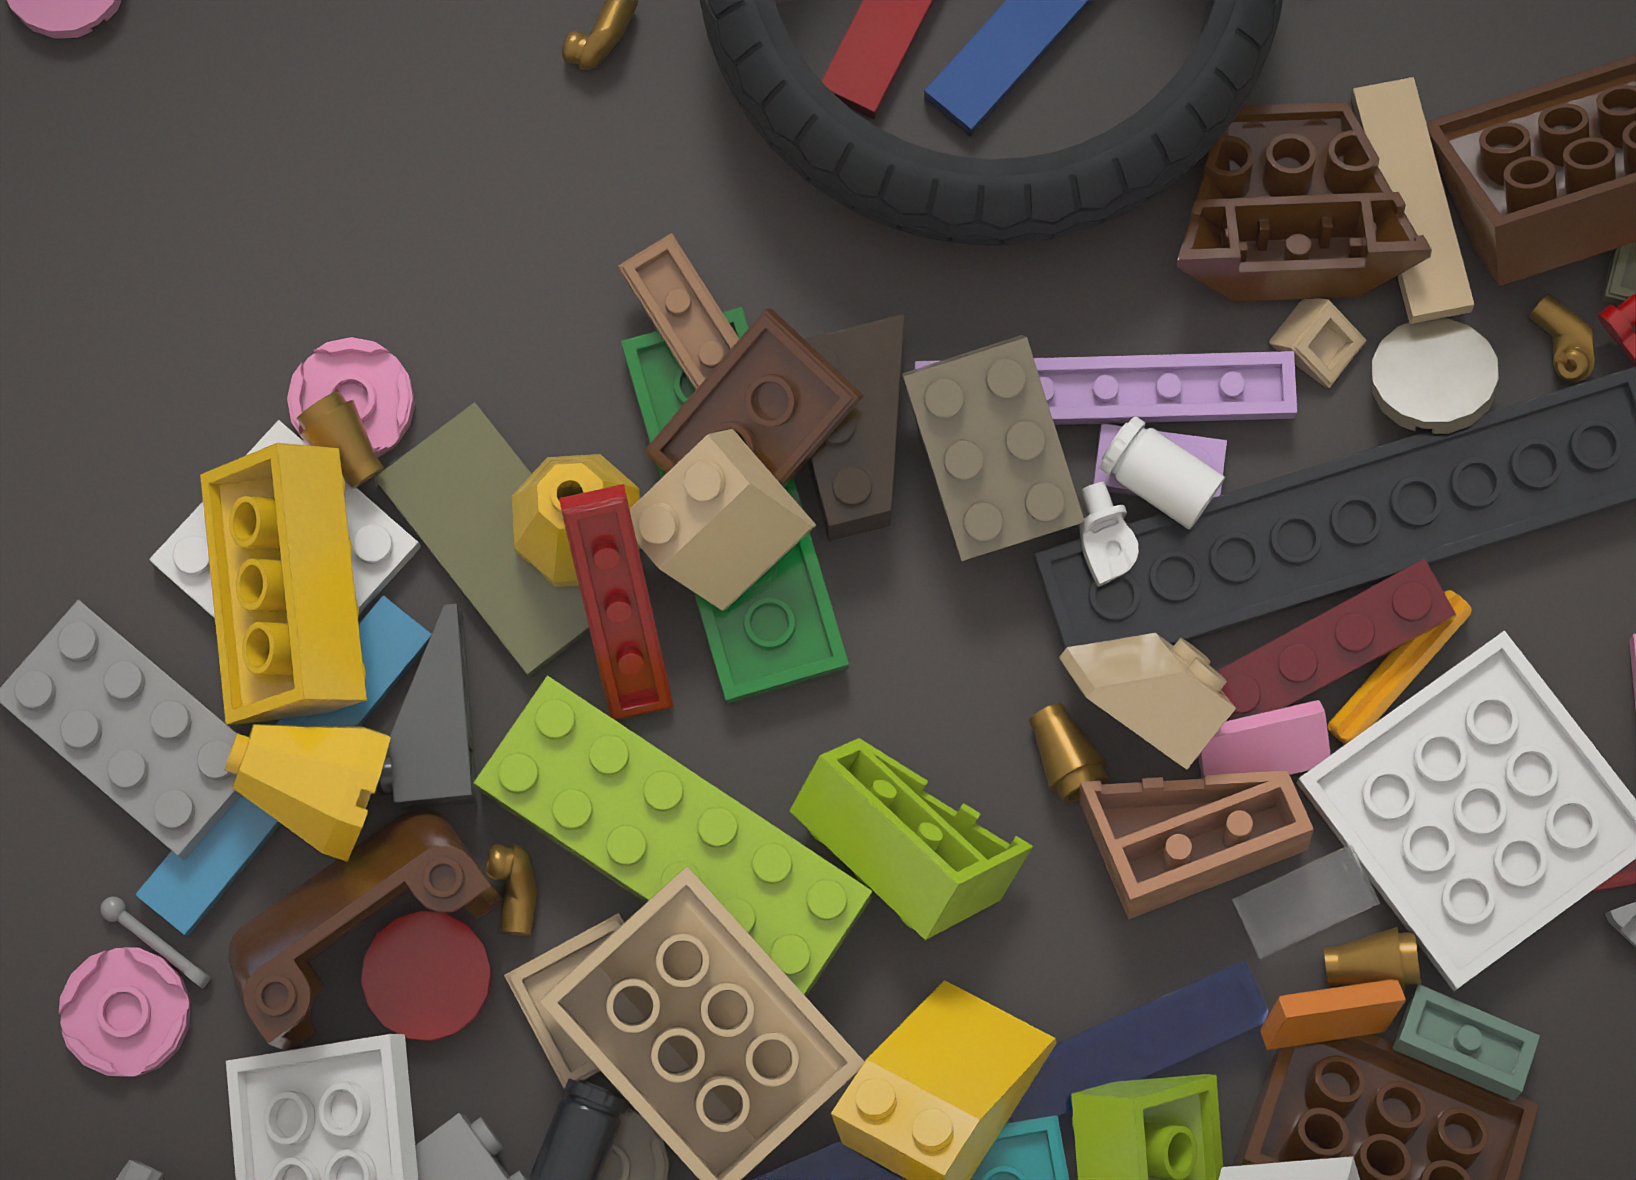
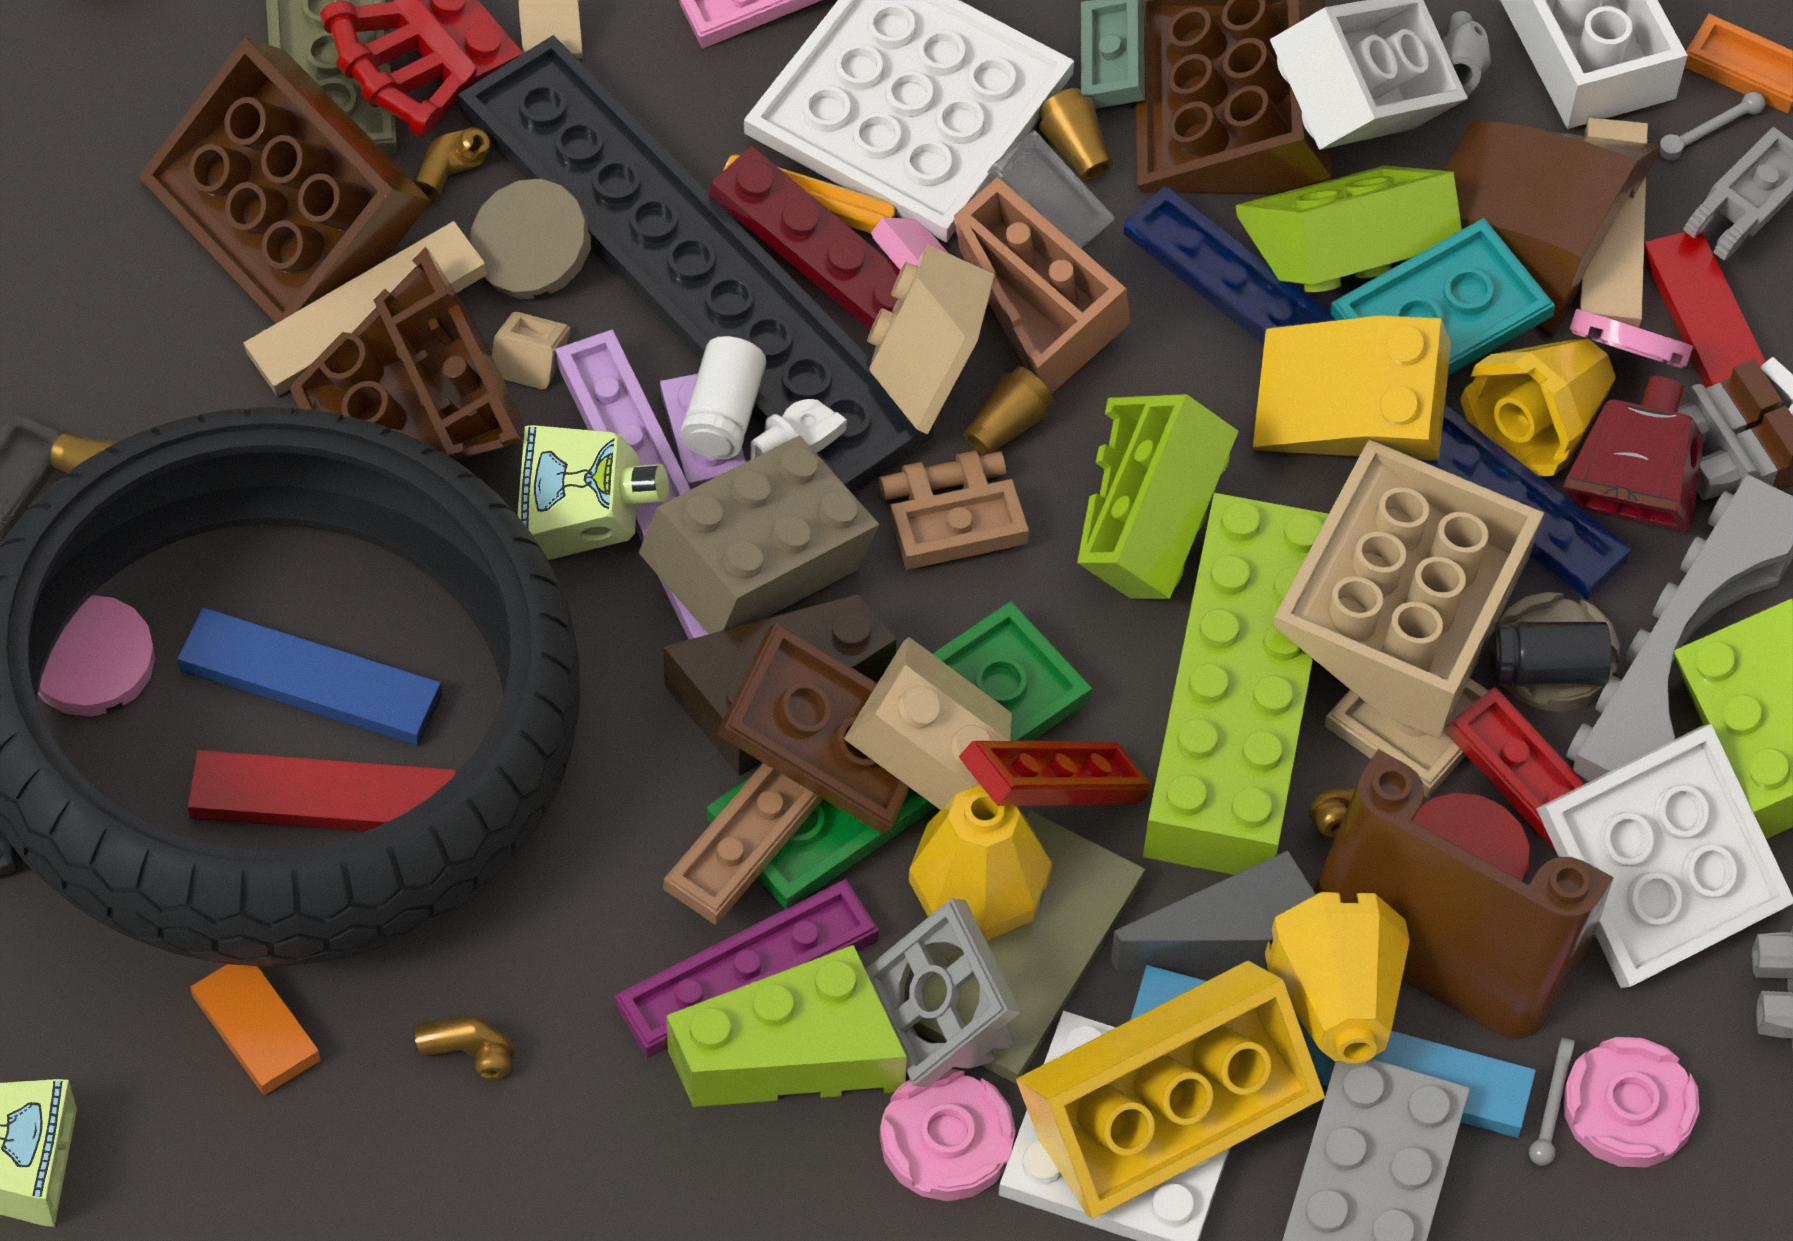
camera: 115 degrees left, 20 degrees down
(338, 425) = (994, 1106): pearl gold cone -> none
(419, 399) = (922, 951): none -> light grey piece
(483, 294) = (788, 1035): none -> lime wedge
(487, 1071) = (1512, 756): none -> red tile
(581, 294) = (783, 941): none -> magenta tile
(960, 657) = (956, 522): none -> medium nougat plate
(1117, 310) = (583, 488): none -> yellowish green torso
(1332, 1014) = (1141, 139): orange tile -> none

